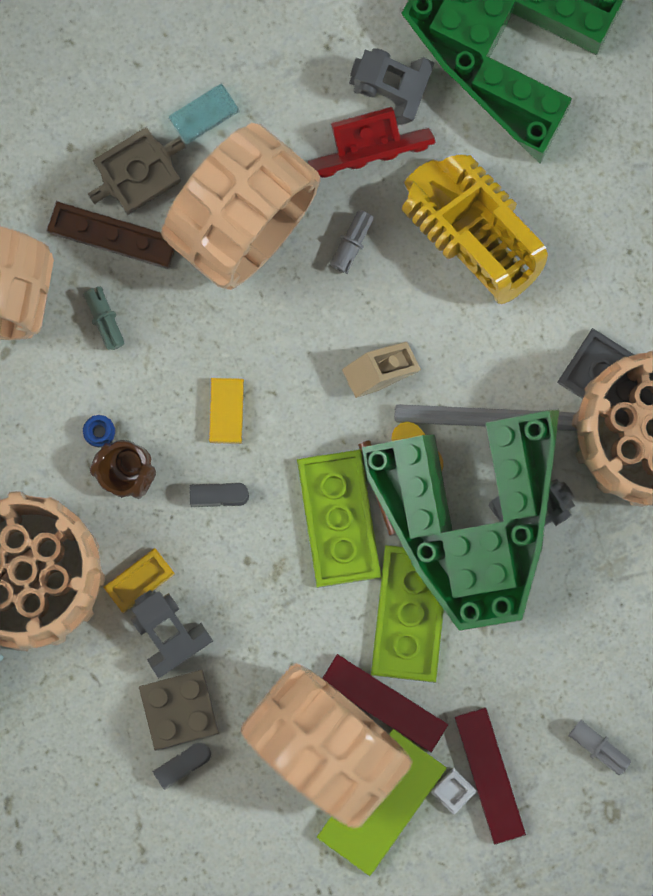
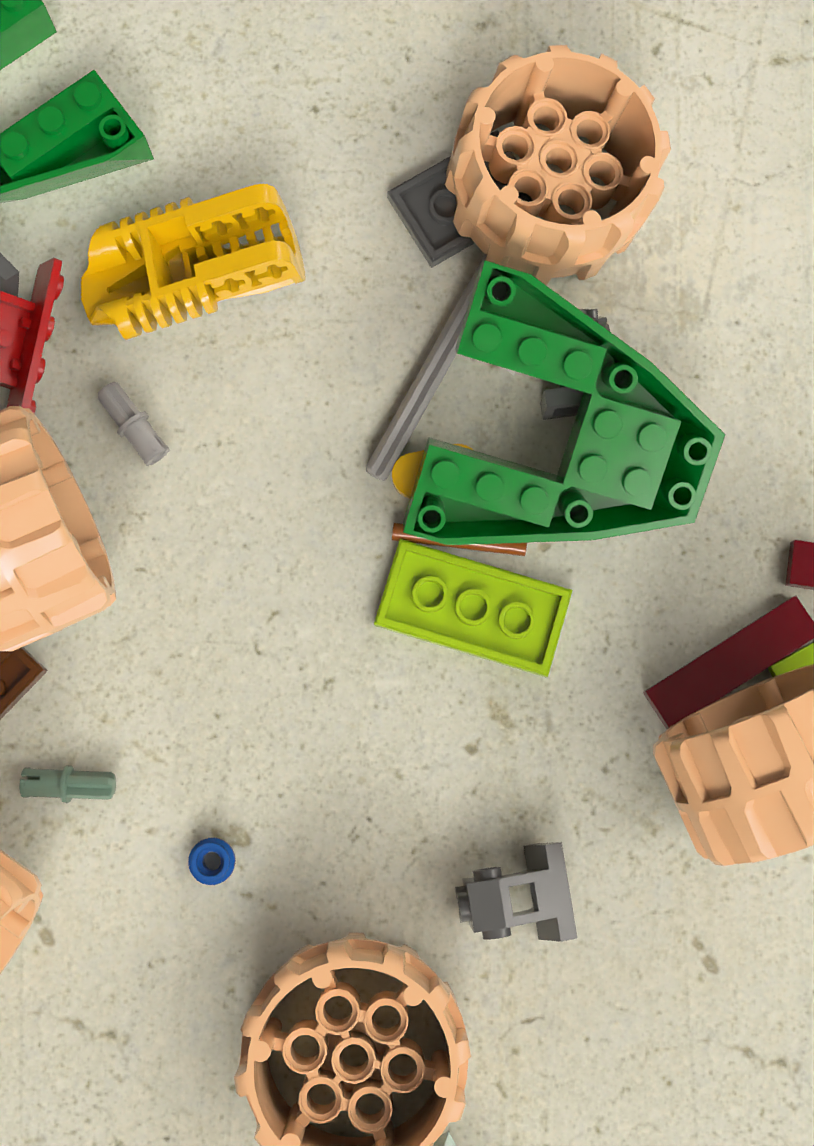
camera: 70 degrees left, 0 degrees up
(123, 469) = (279, 853): reddish brown hair -> none
(138, 579) = (431, 901): yellow tile -> none
(178, 710) = (623, 929): dark tan plate -> none
(182, 765) = (697, 958): dark grey bar -> none
(216, 495) = (370, 745): dark grey bar -> none
(226, 410) = (267, 683): yellow tile -> none
(380, 369) = (311, 466): tan slope -> none
(406, 622) = (641, 586): lime tile -> none

